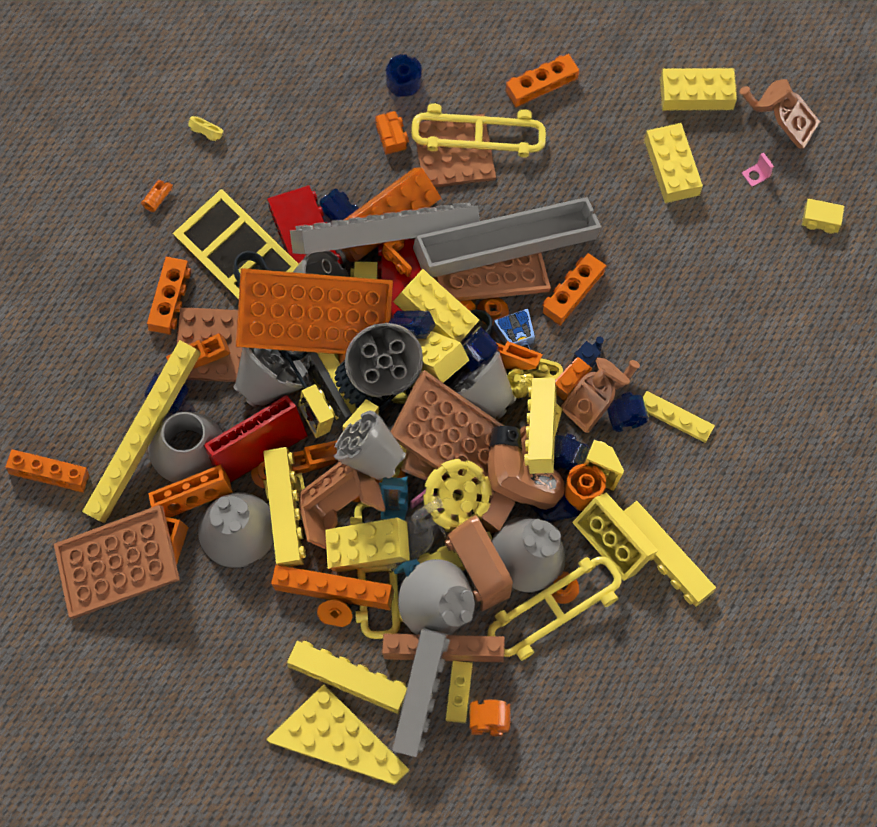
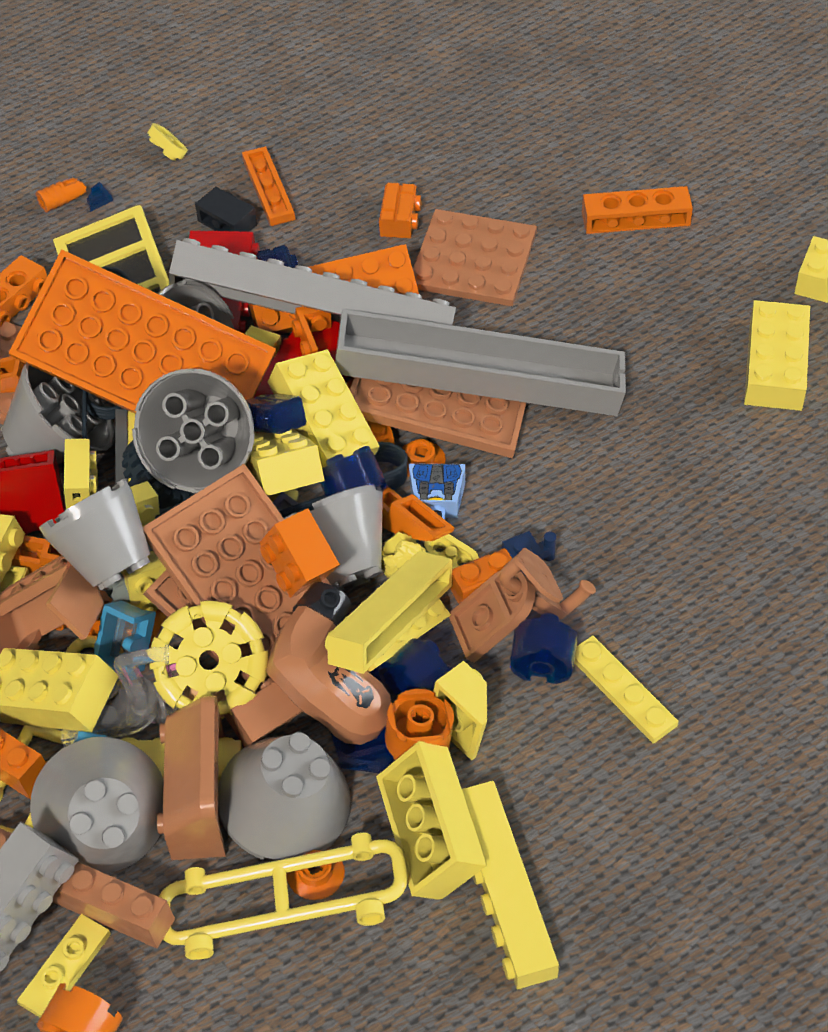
camera: 30 degrees right, 15 degrees down
(182, 188) = (98, 197): none -> clear blue tile
(279, 174) = (225, 212): none -> black brick
(293, 141) = (268, 186): none -> orange plate
(403, 75) = (450, 153): clear blue brick -> none
(481, 414) = (298, 553): none -> orange brick
(524, 118) = (467, 202): light yellow bar -> none
(559, 312) = (550, 465): orange brick -> none

